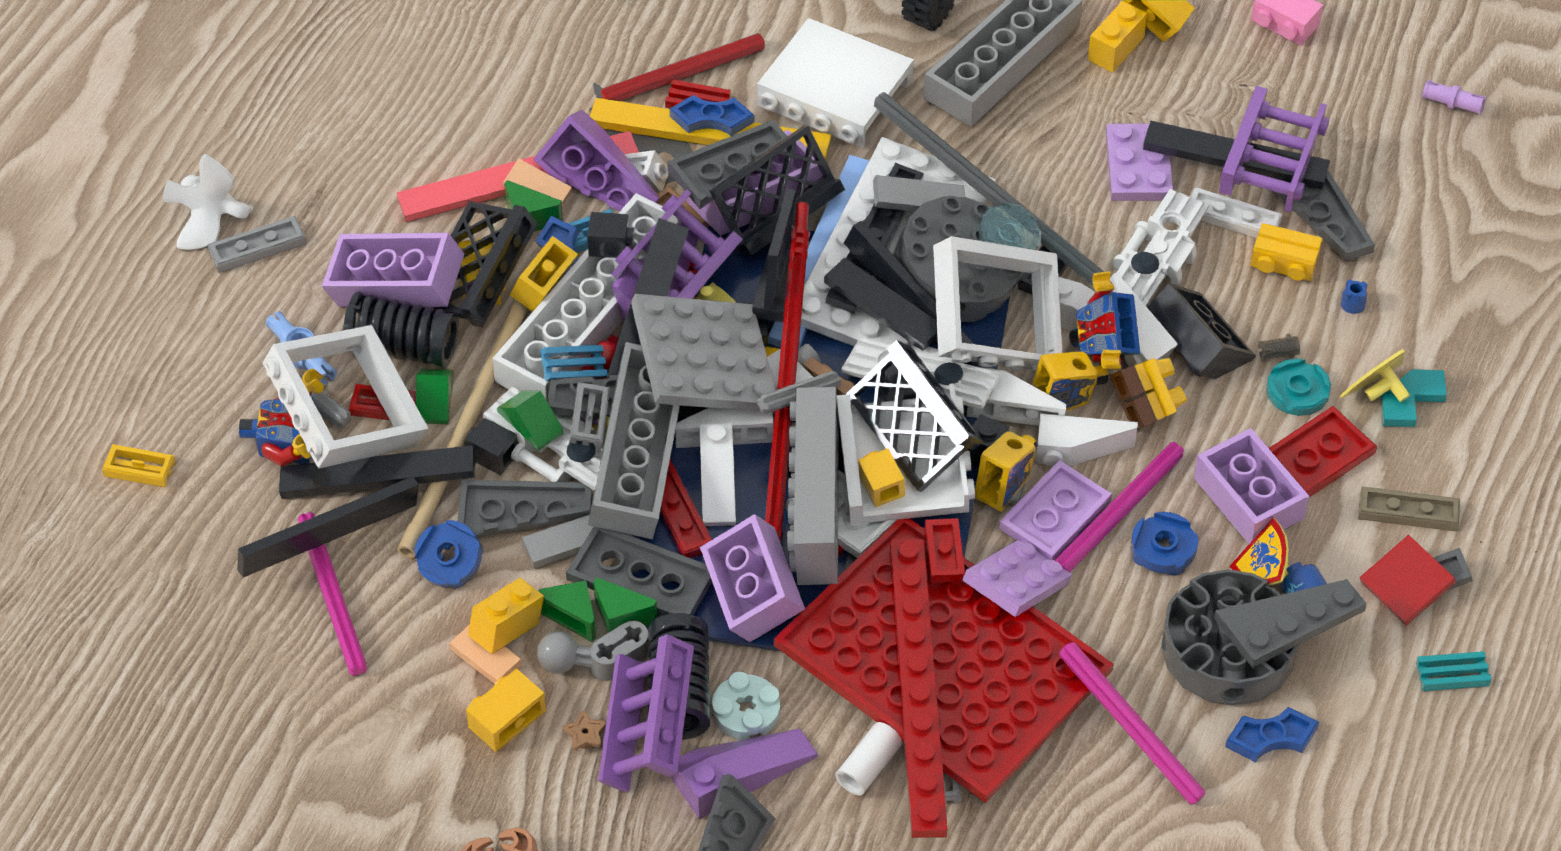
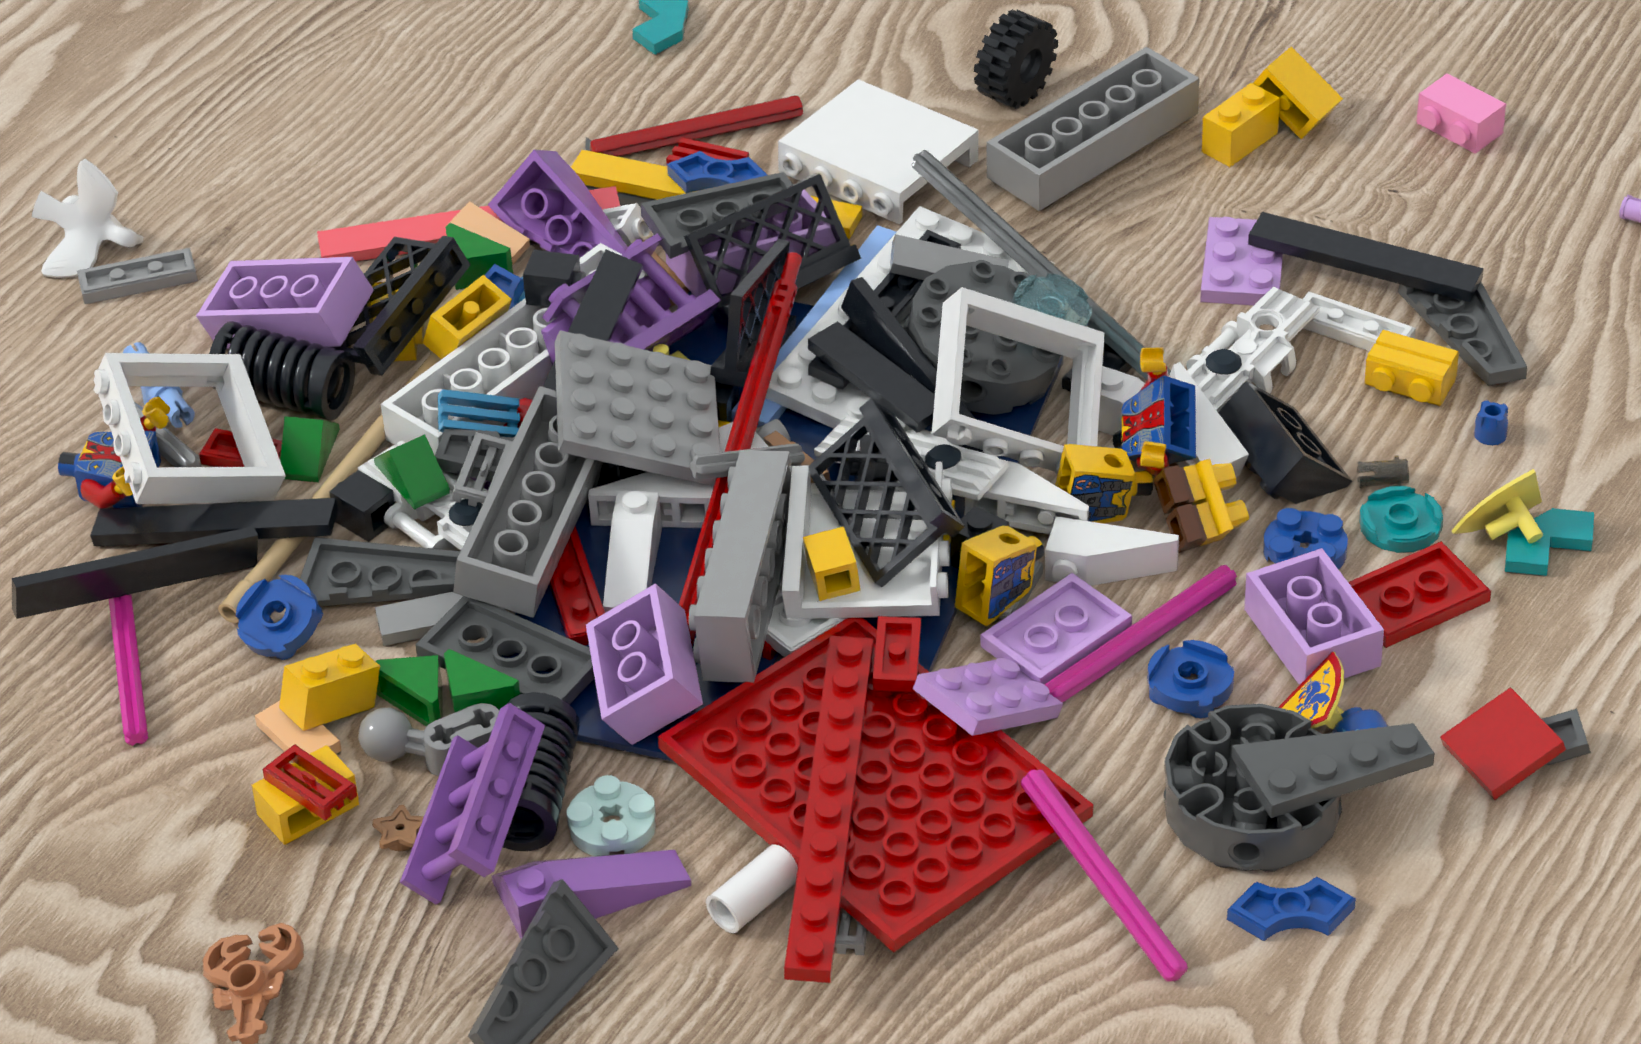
camera: 10 degrees right, 10 degrees down
(527, 726) = (304, 787): none -> red tile
(1229, 400) = (1294, 527): none -> blue plate
(1251, 129) = (1385, 224): medium lavender fence -> none
(1409, 508) = (1522, 666): dark tan tile -> none
(1452, 666) = (1539, 854): teal tile -> none

